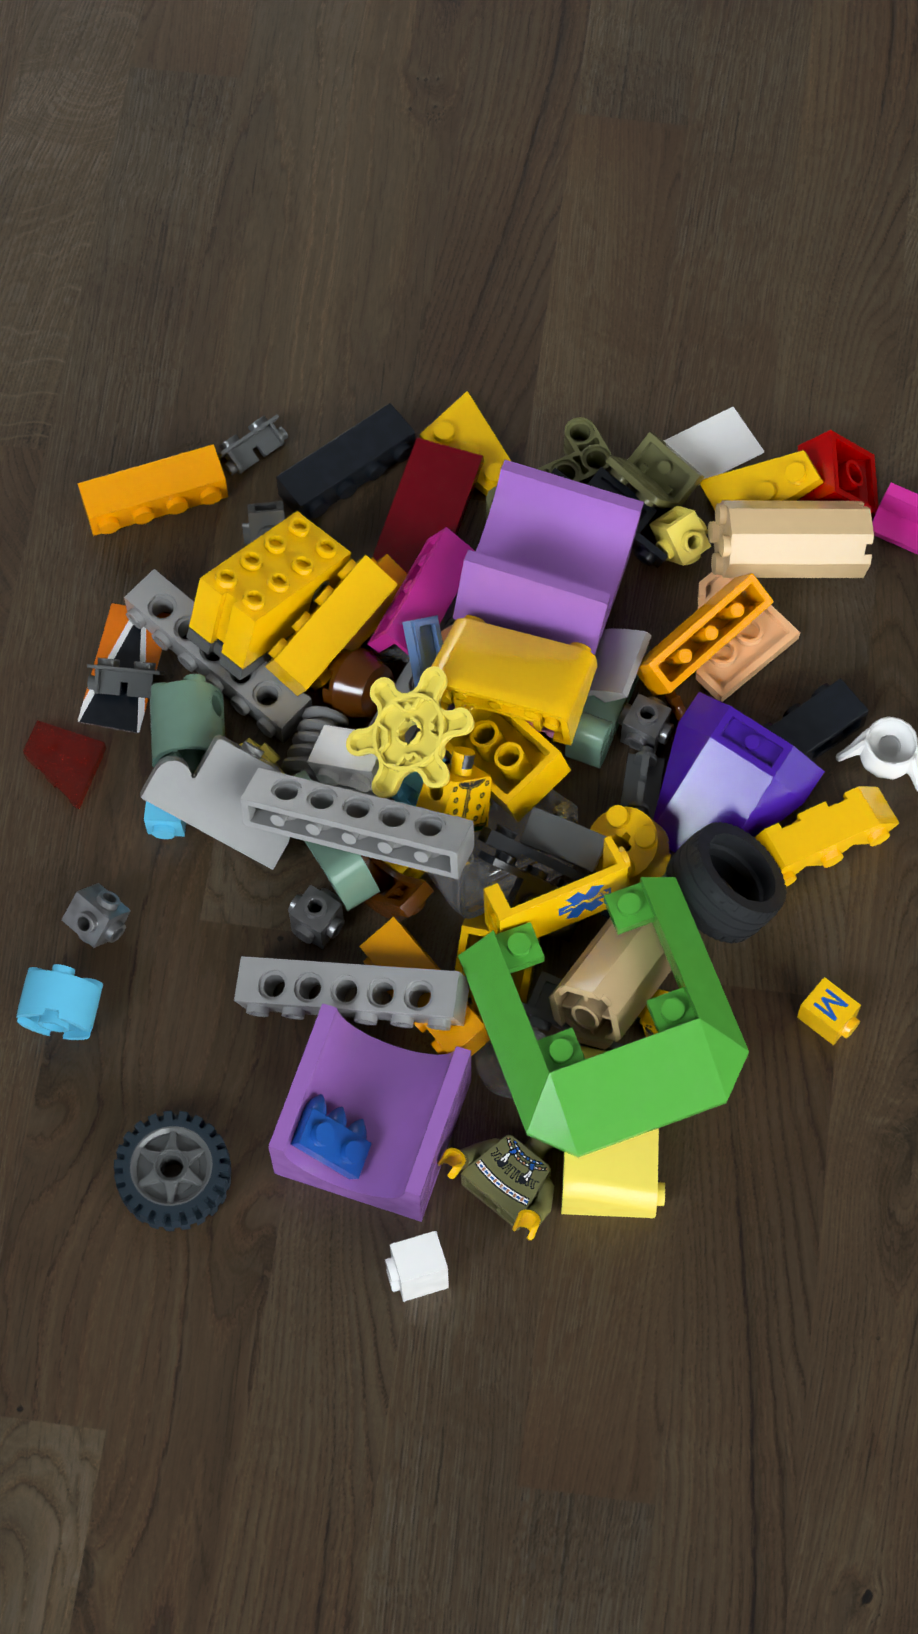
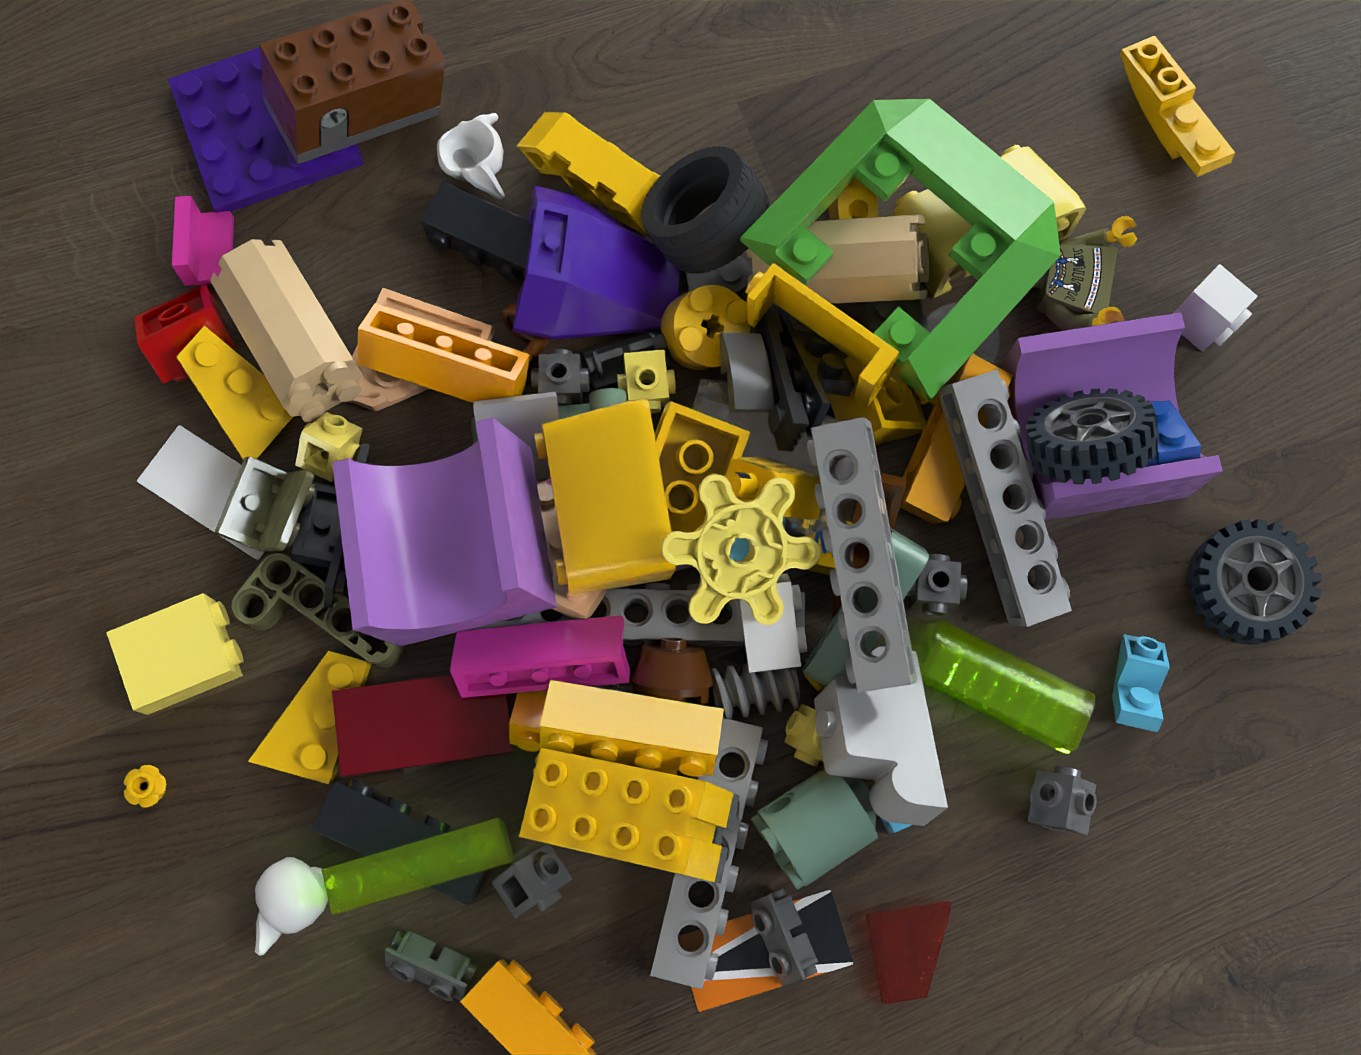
camera: 120 degrees left, 10 degrees up
(59, 1002) = (1178, 780): medium azure brick -> none
(147, 1034) = (1137, 682): none -> medium azure slope
(208, 930) = (1006, 687): none -> clear neon green brick
(318, 449) = (417, 866): none -> clear neon green brick
(351, 376) = (288, 900): none -> white piece
(358, 1066) = (1092, 436): none -> black wheel
(423, 643) = (613, 611): medium blue tile -> none
(485, 329) = (155, 790): none -> yellow plate
(574, 374) = (175, 653): none -> light yellow brick
(608, 783) = (651, 369): none -> light yellow brick
(631, 1369) = (1169, 106): none -> yellow slope
(830, 1012) = (760, 95): yellow brick -> none

